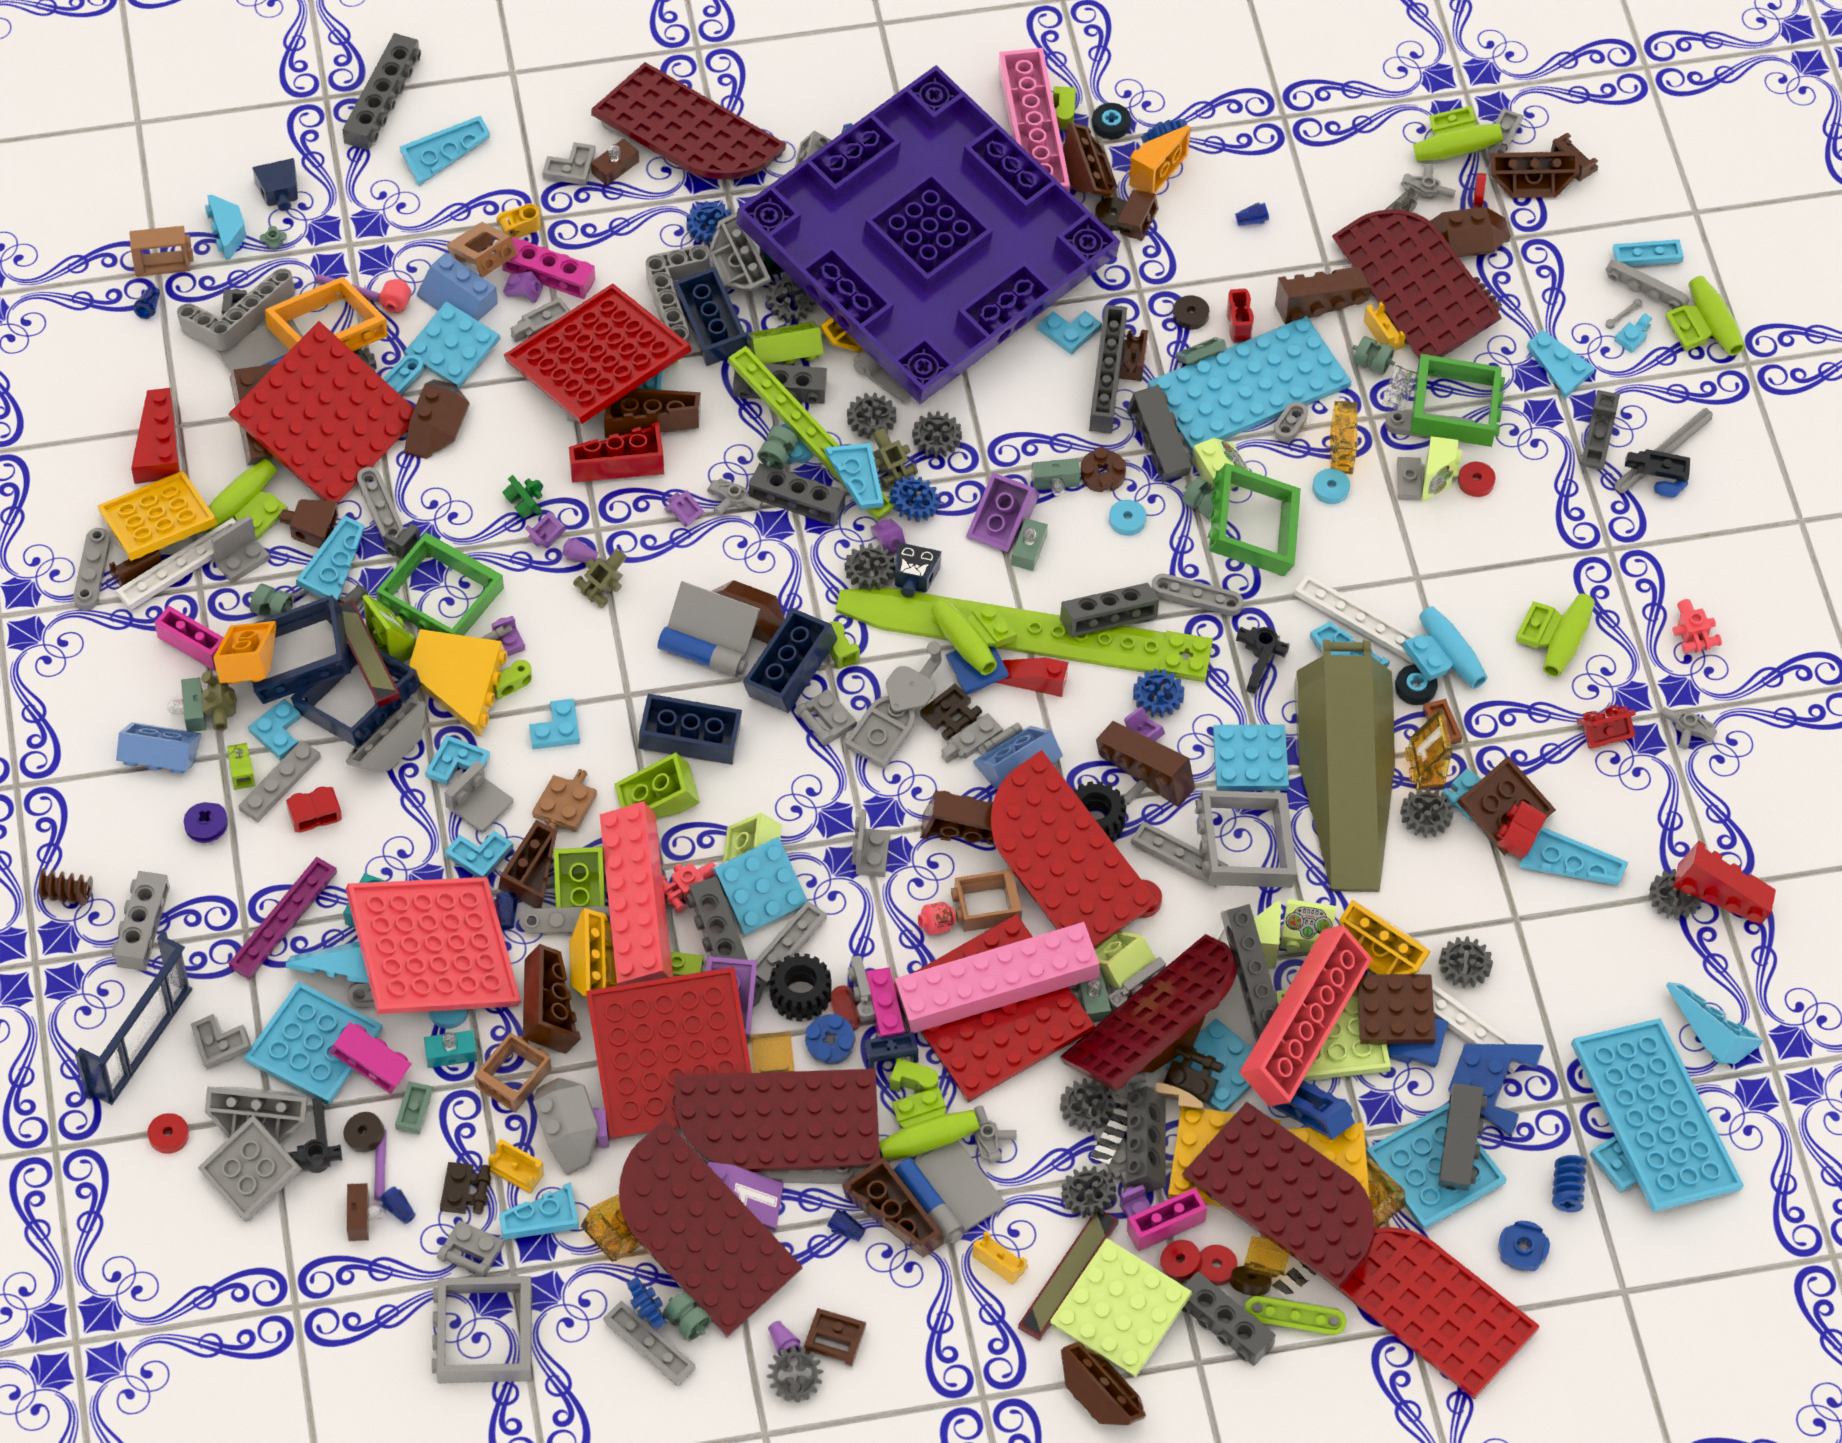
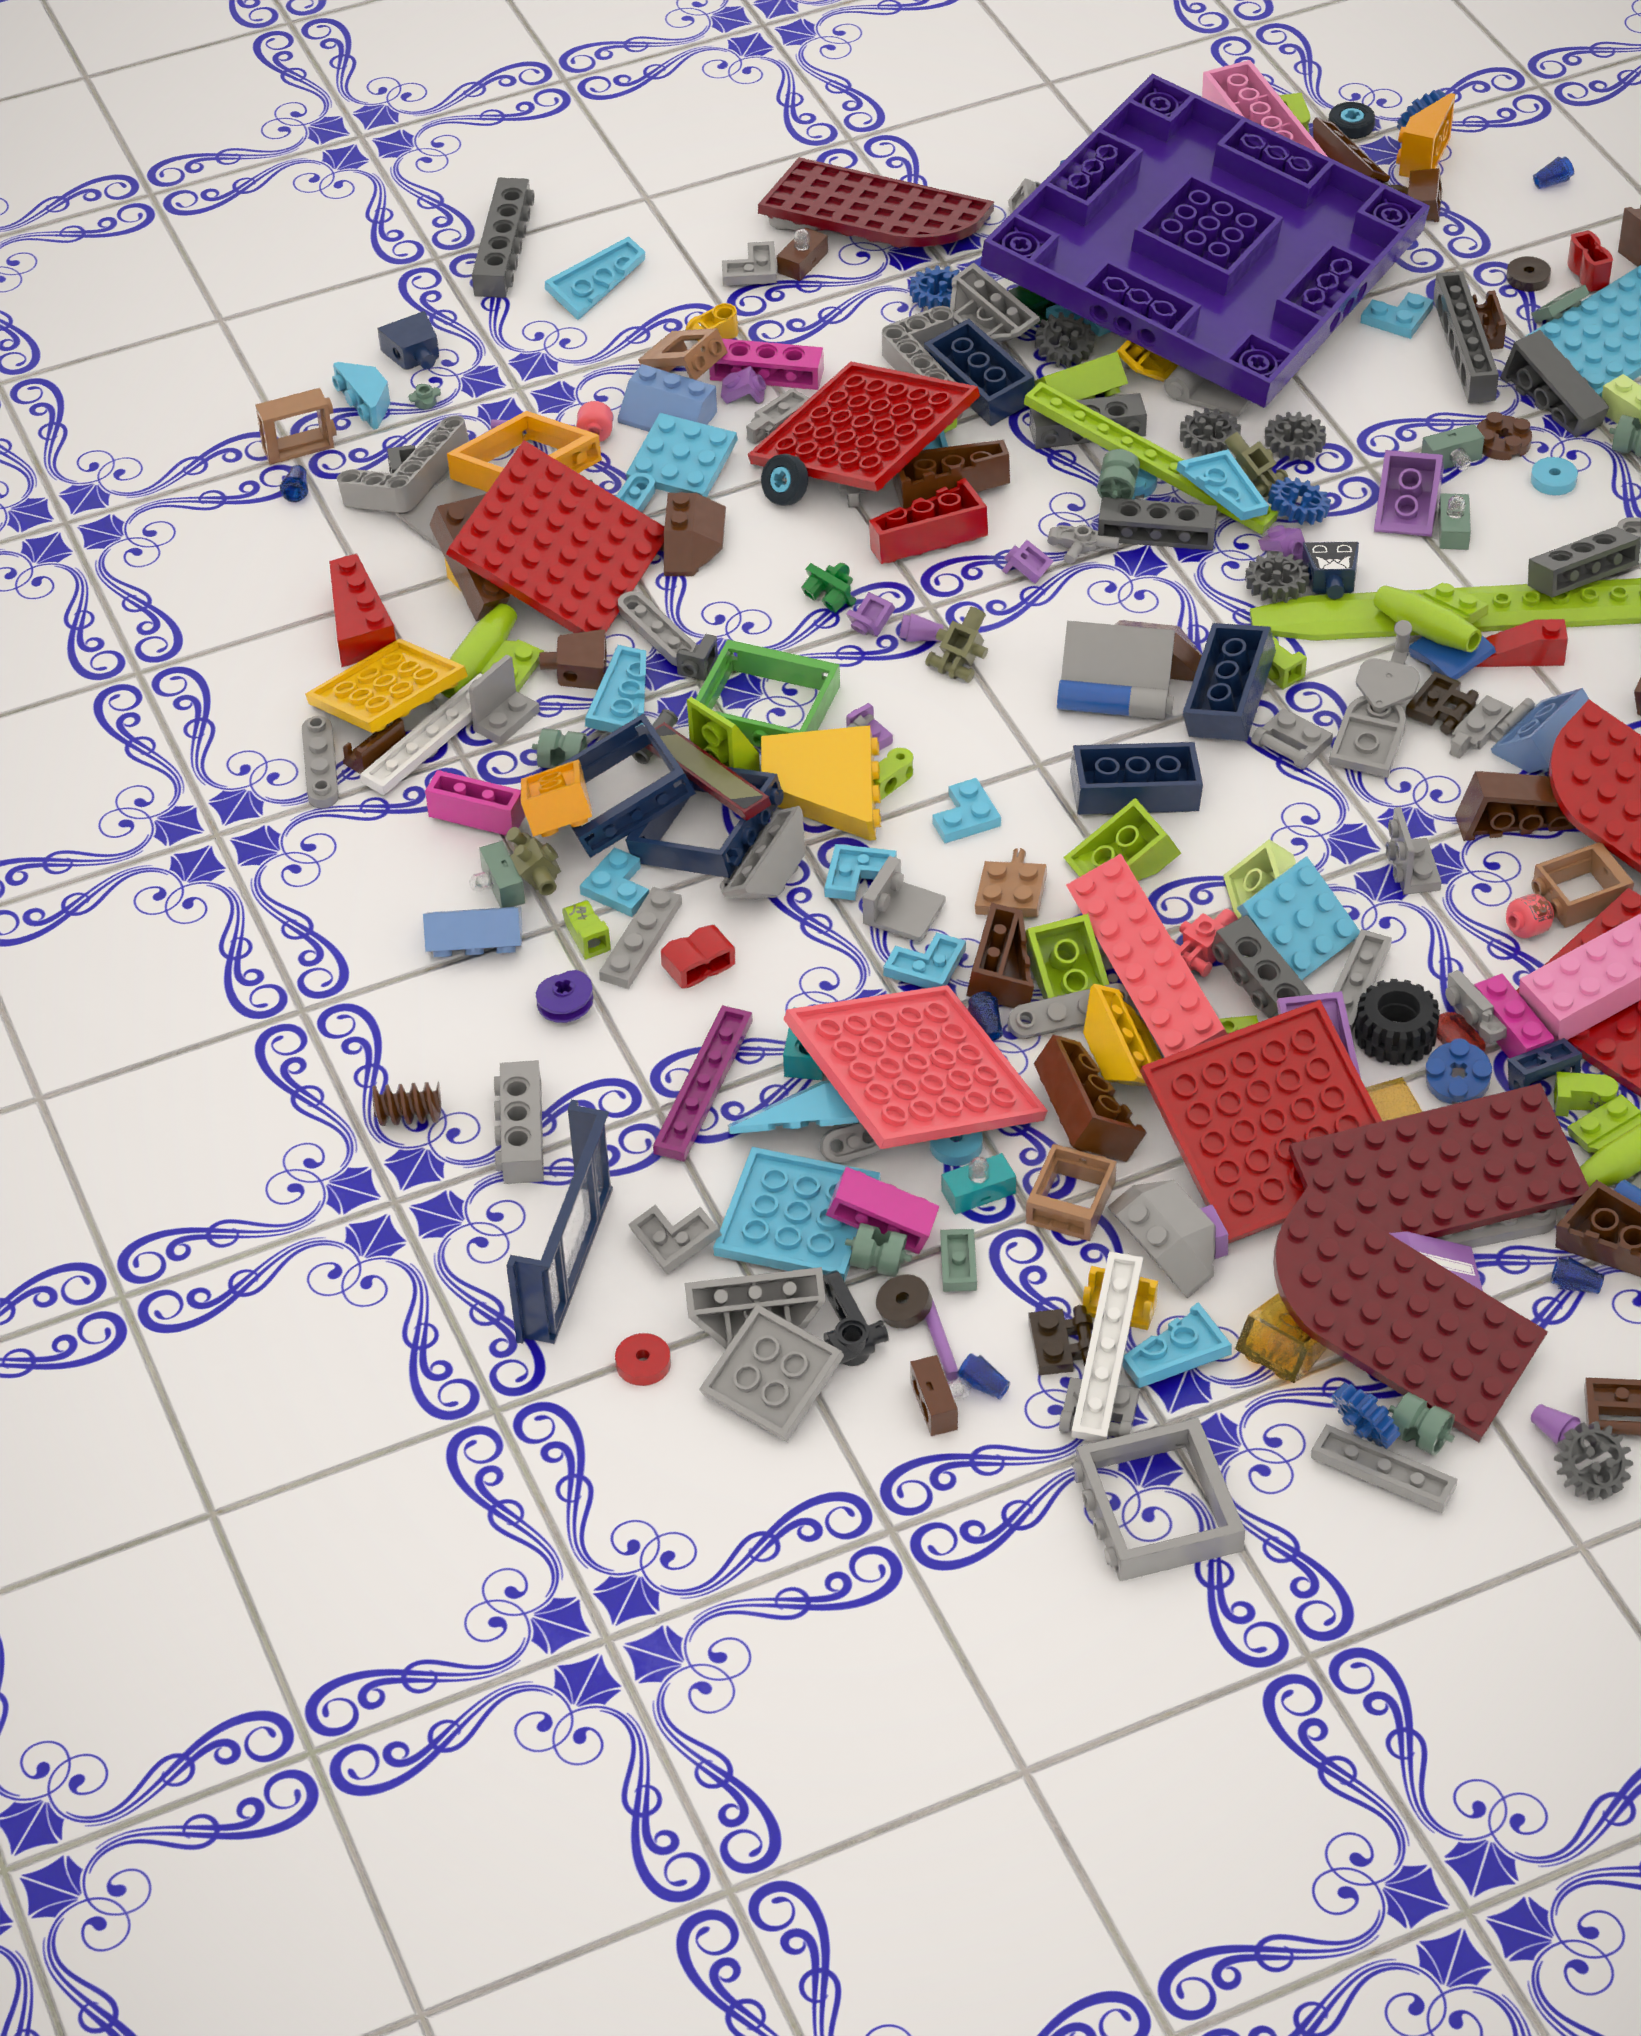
camera: 10 degrees left, 10 degrees down
(357, 1087) = (878, 1250): none -> sand green wheel
(486, 1206) = (1107, 1347): none -> white plate
(521, 388) = (796, 477): none -> black bush

